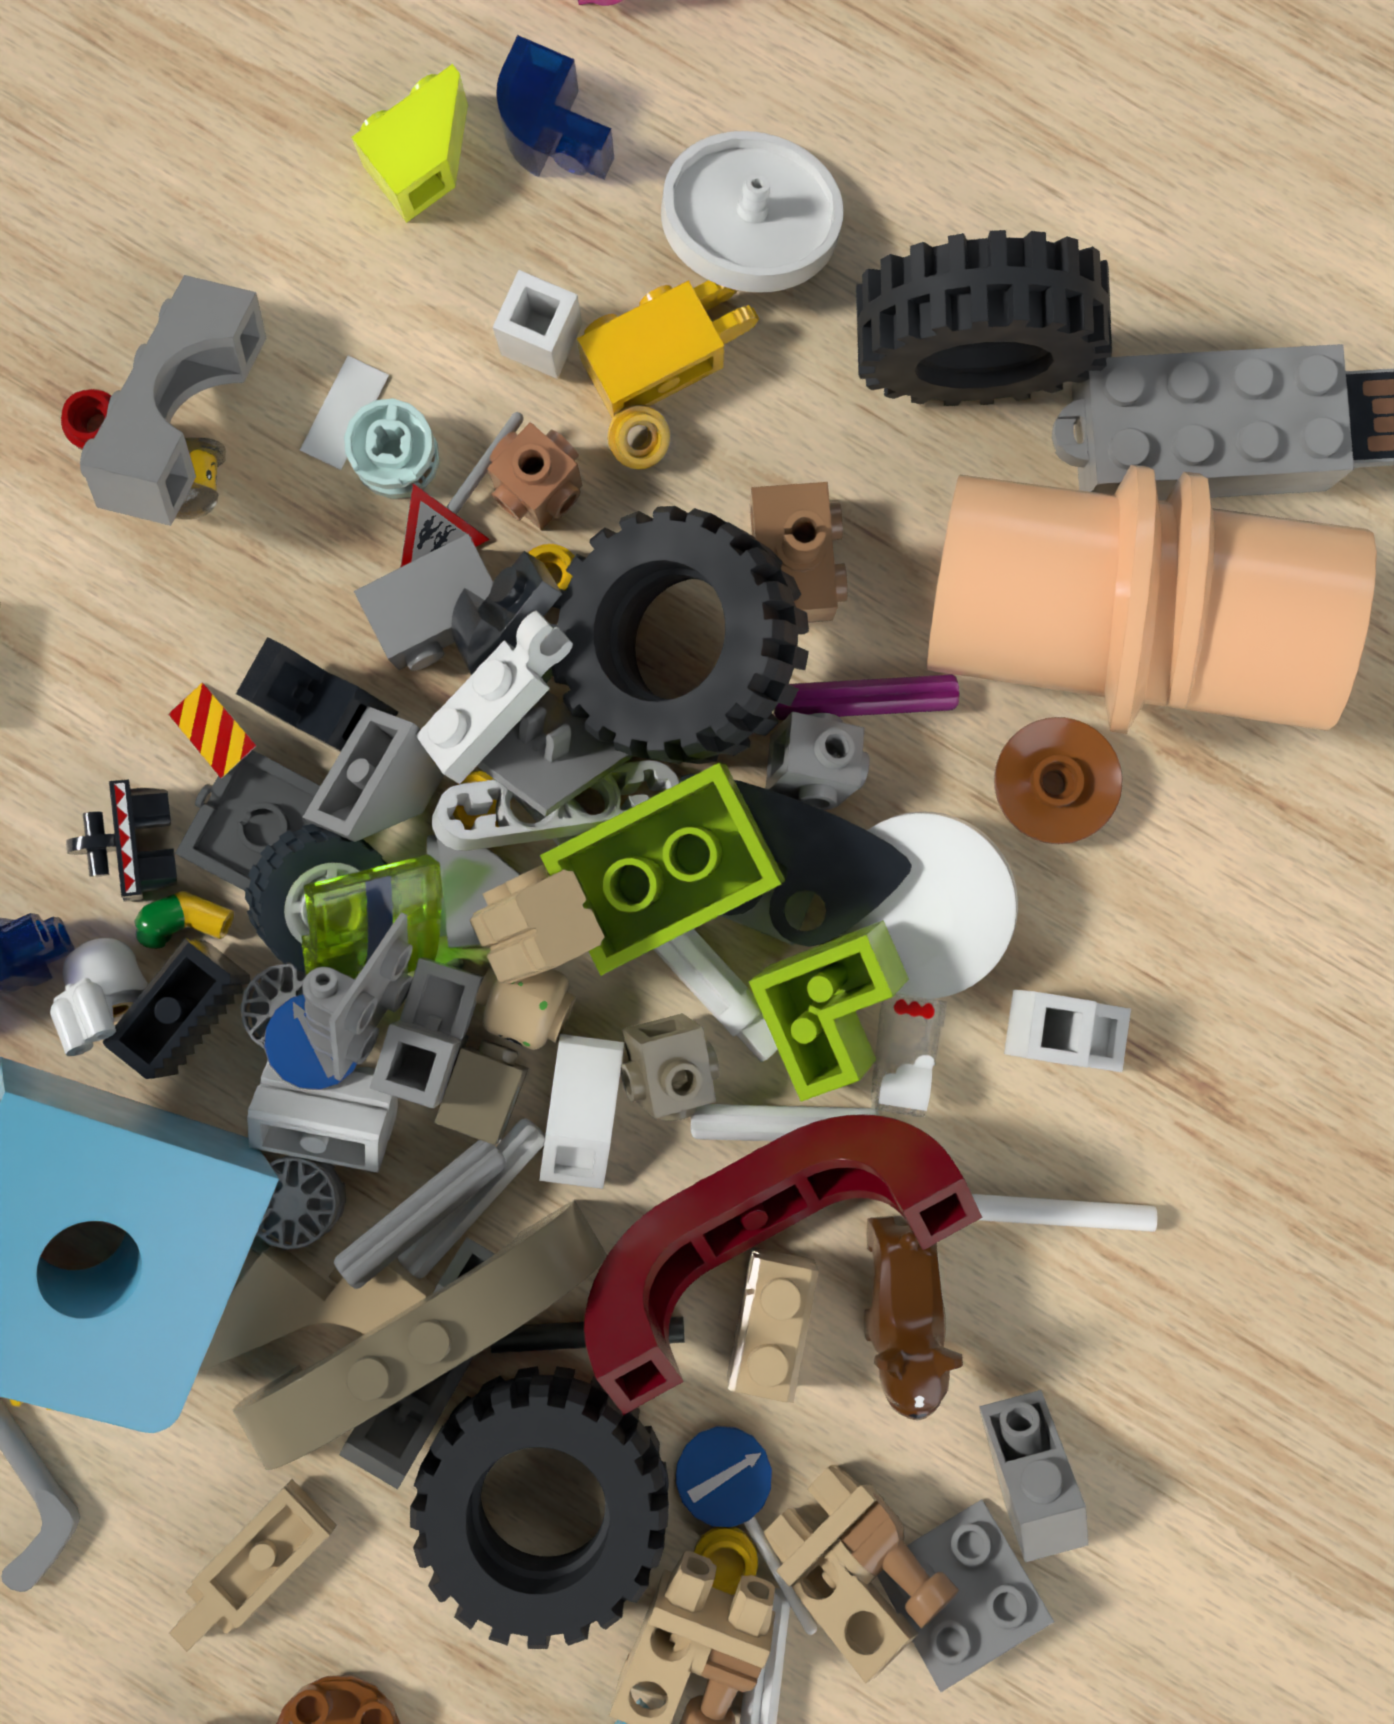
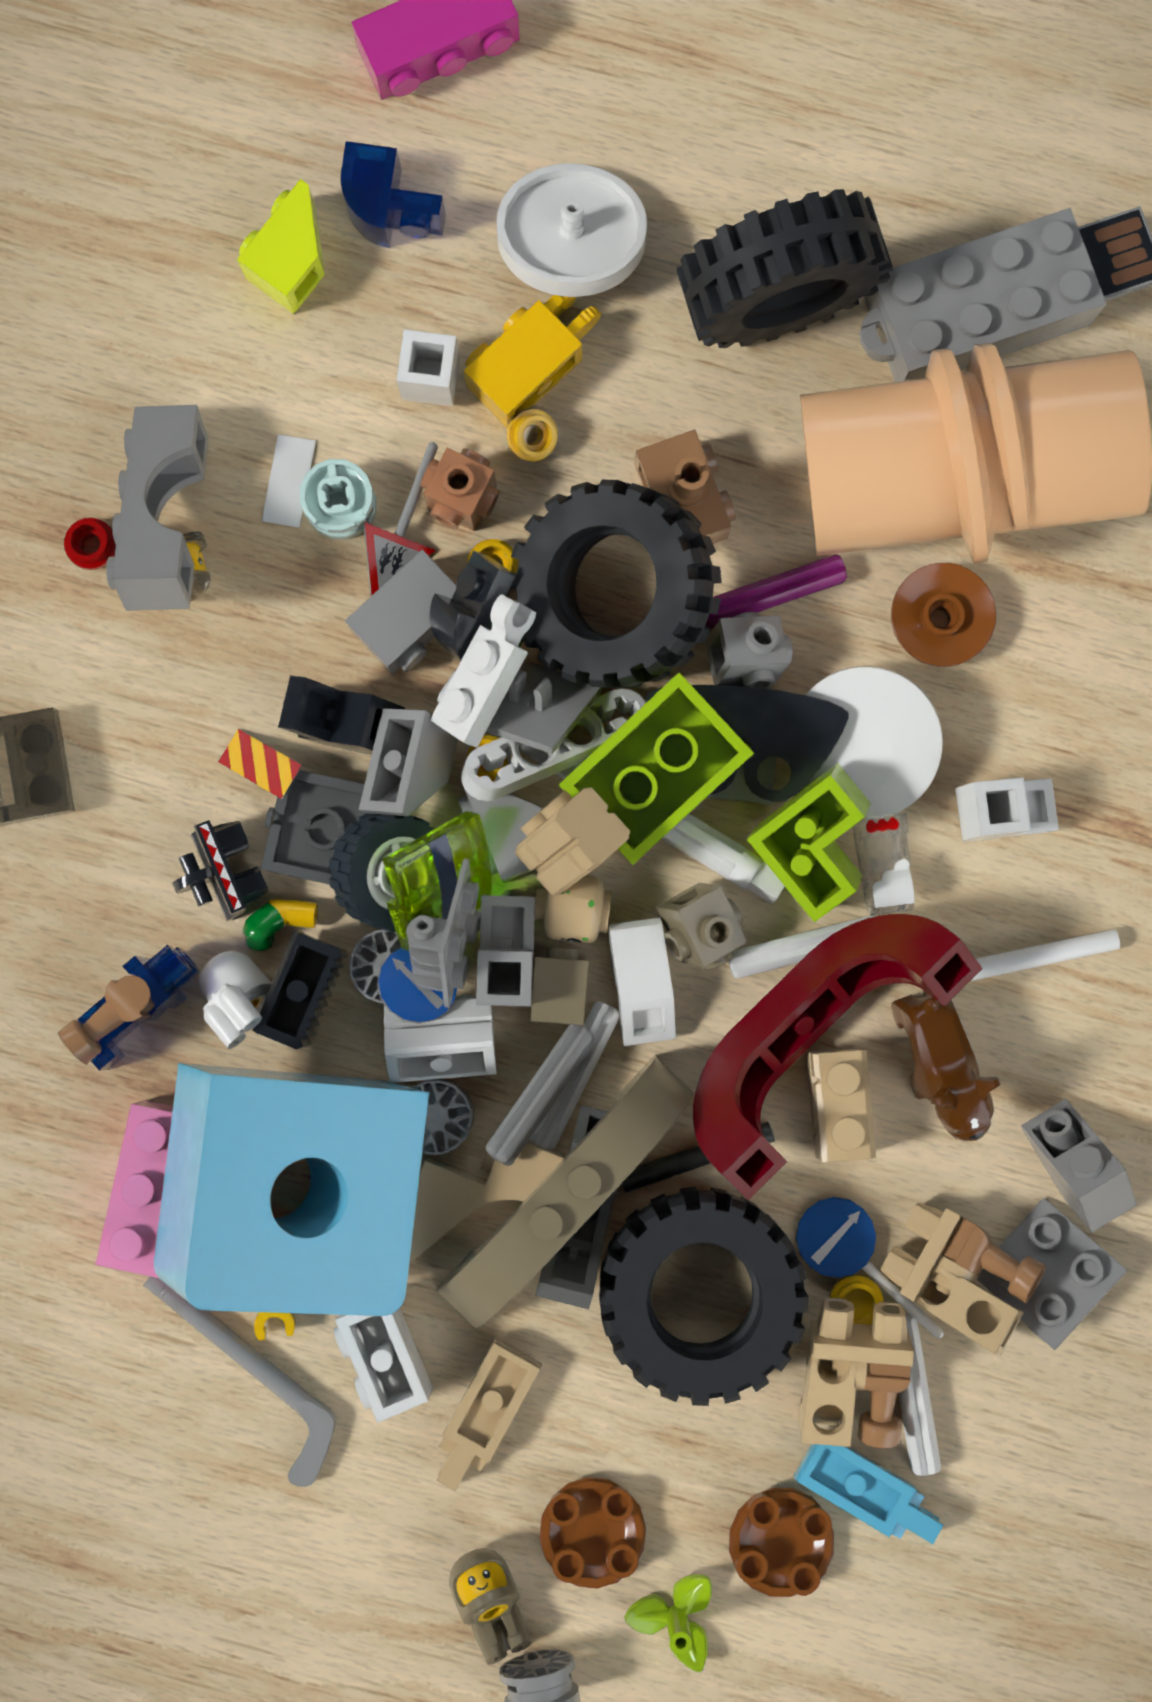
camera: 15 degrees left, 0 degrees up
(149, 1483) = (386, 1363): none -> white brick

